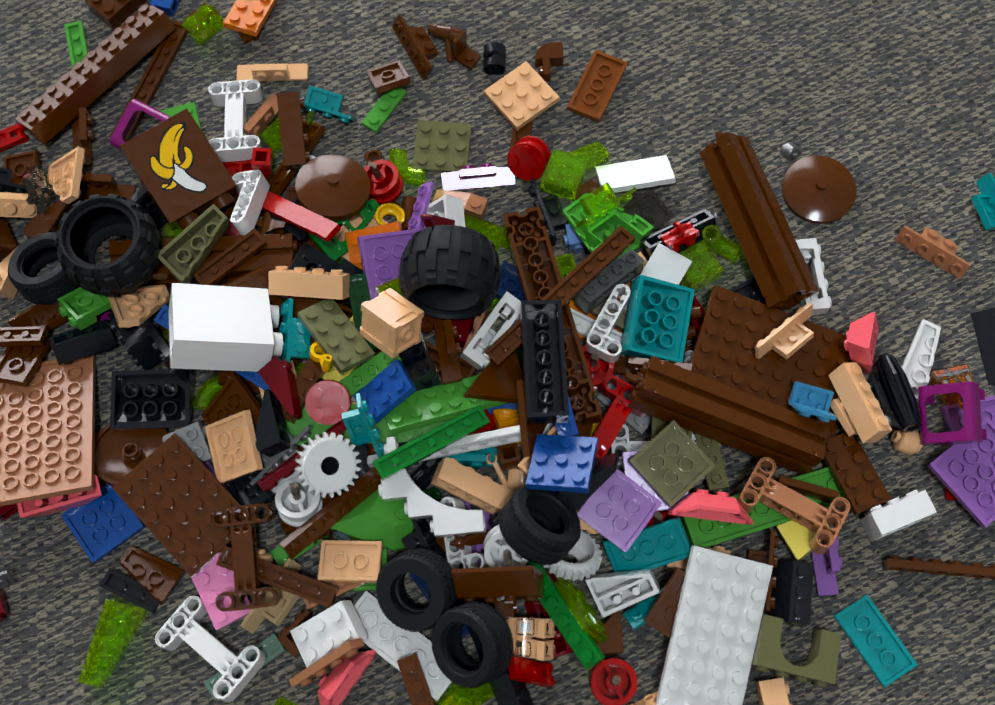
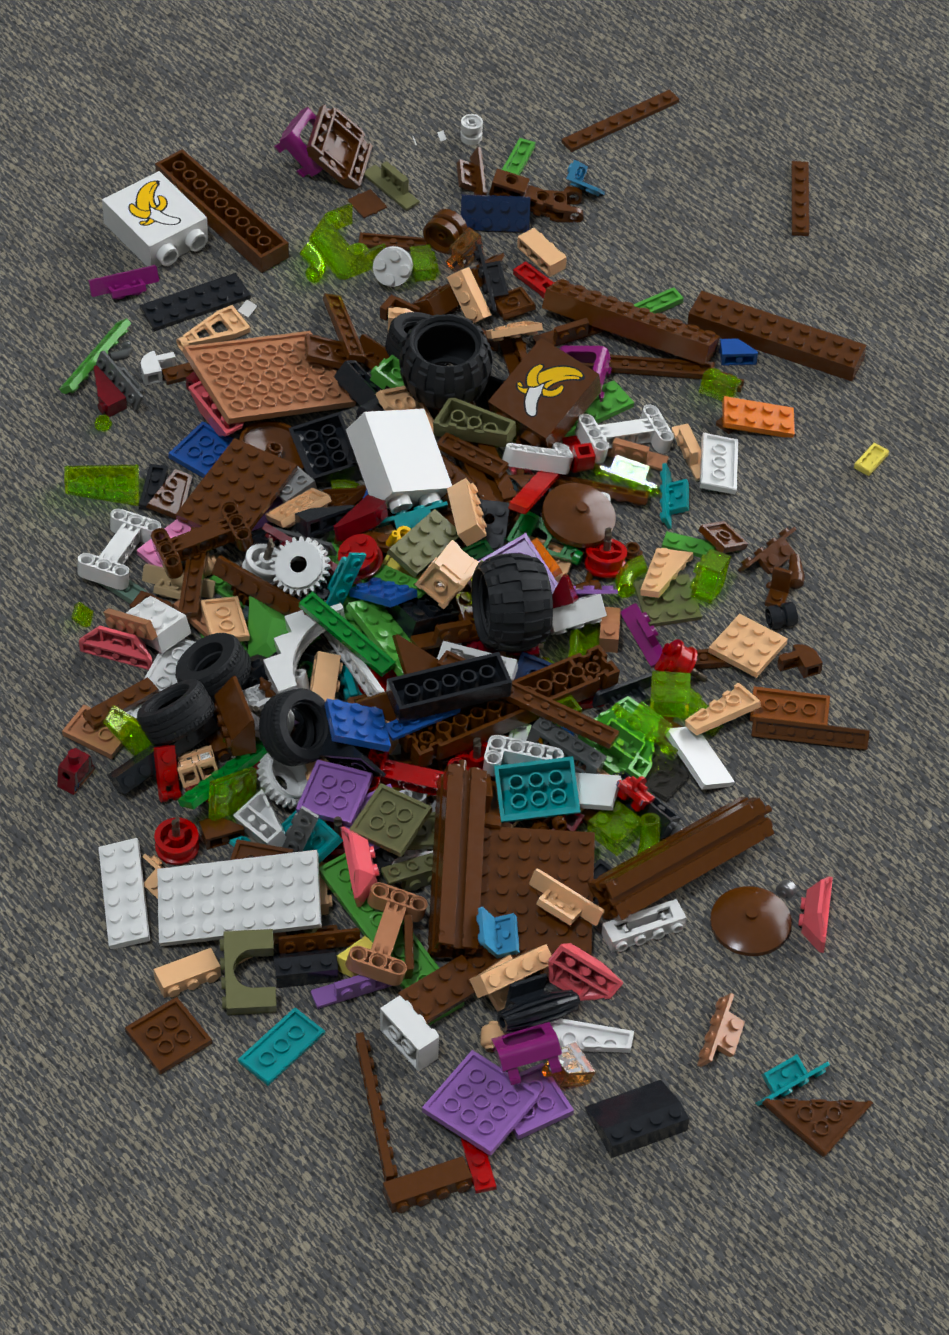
camera: 70 degrees right, 20 degrees down
(13, 623) = (103, 423): none -> clear neon green plate
(37, 189) = (492, 311): clear smoke plate -> none
(293, 130) = (627, 470): reddish brown wedge -> none
(297, 53) = (719, 463): none -> white tile
(389, 209) = (574, 565): yellow piece -> none
(408, 135) = (663, 569): none -> light nougat wing
(438, 99) = (710, 576): none -> clear neon green brick
(591, 135) = (729, 707): none -> light nougat wing
(630, 78) = (810, 732): none -> reddish brown plate
(662, 559) = (300, 831): none -> dark grey bracket
(827, 132) = (816, 913): none -> coral wedge

